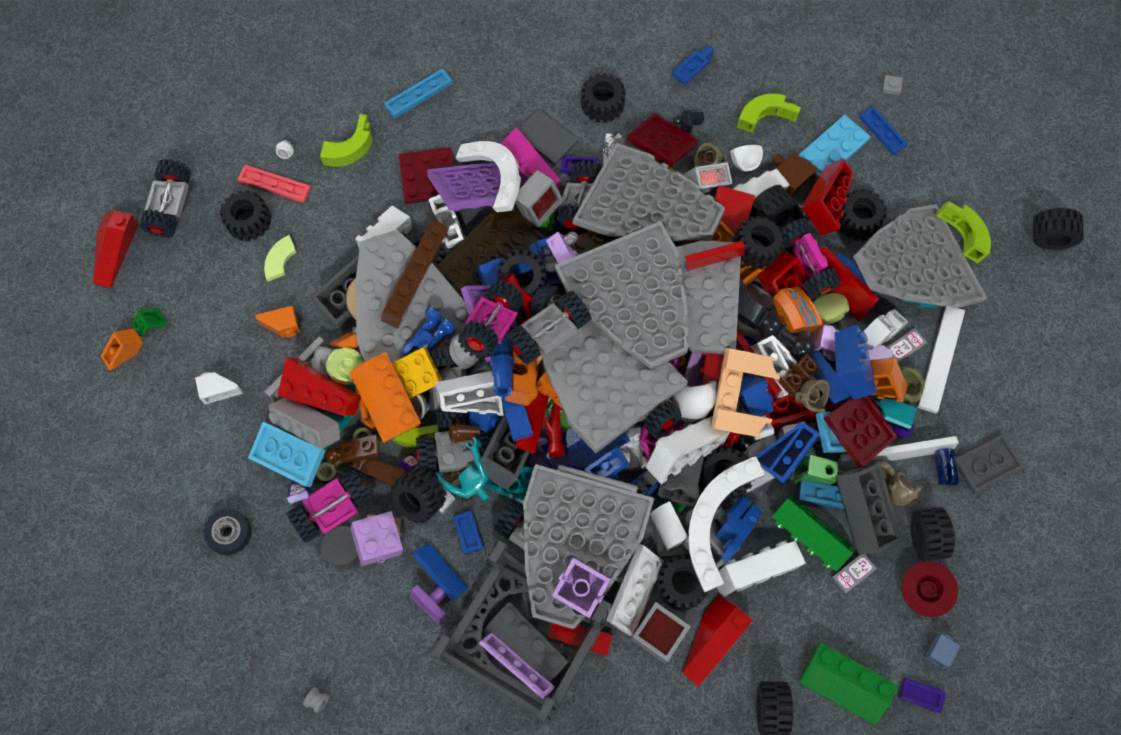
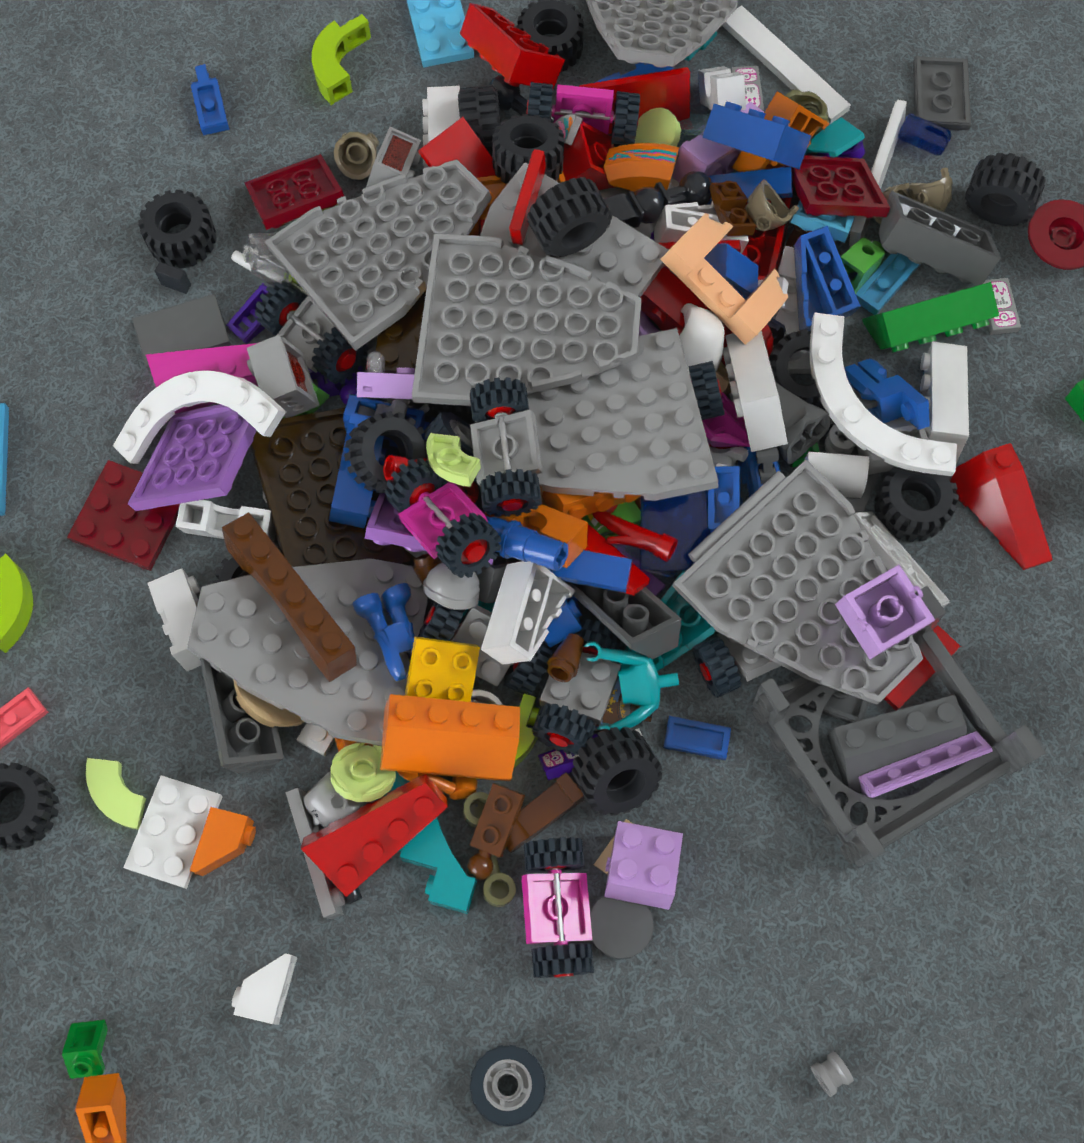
camera: 60 degrees left, 0 degrees up
(274, 295) = (171, 831): none -> white plate
(286, 454) = (443, 931): medium azure plate -> none
(297, 492) = (509, 942): tile -> none
(304, 422) = (413, 877): light grey brick -> none
(347, 340) = (318, 755): orange slope -> none
(430, 602) = (772, 840): medium lavender tile -> none
(440, 571) = (735, 802): blue tile -> none
(524, 304) = (449, 461): none -> yellowish green tile
(573, 112) = (172, 277): none -> black tile
(660, 633) = (968, 562): piece -> none
(689, 119) = (284, 149): black piece -> none
(709, 282) = (569, 217): none -> black tyre
(747, 157) = (384, 111): white helmet -> none
(787, 255) = (569, 125): none -> light grey tile
(795, 171) = (440, 69): reddish brown torso -> none

